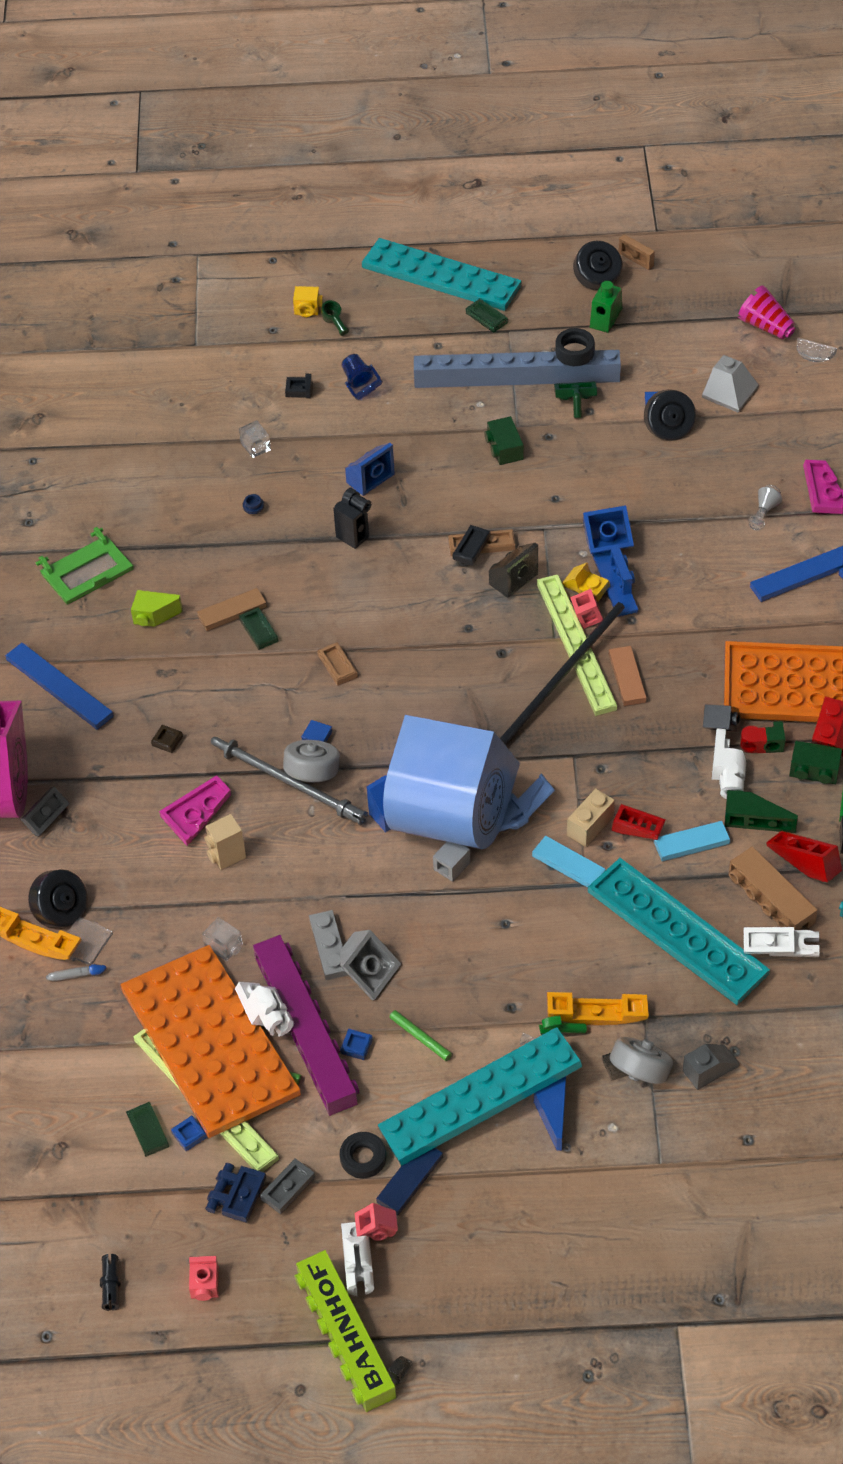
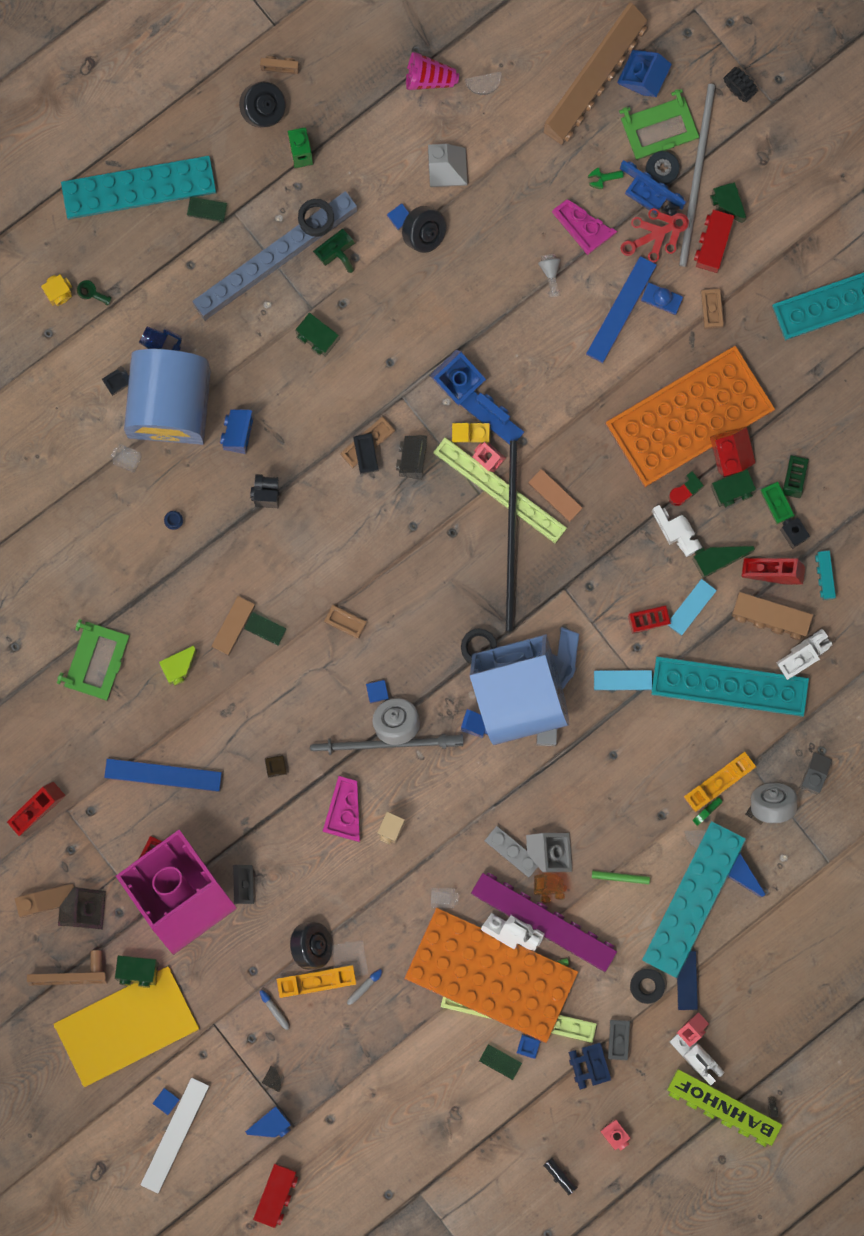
camera: 40 degrees left, 30 degrees up
(329, 400) = (167, 396): none -> medium blue brick
(338, 991) = (549, 884): none -> clear orange piece
(356, 1044) = (585, 912): blue tile -> none
(590, 817) = (615, 637): tan brick -> none
(721, 717) = (649, 495): black brick -> none

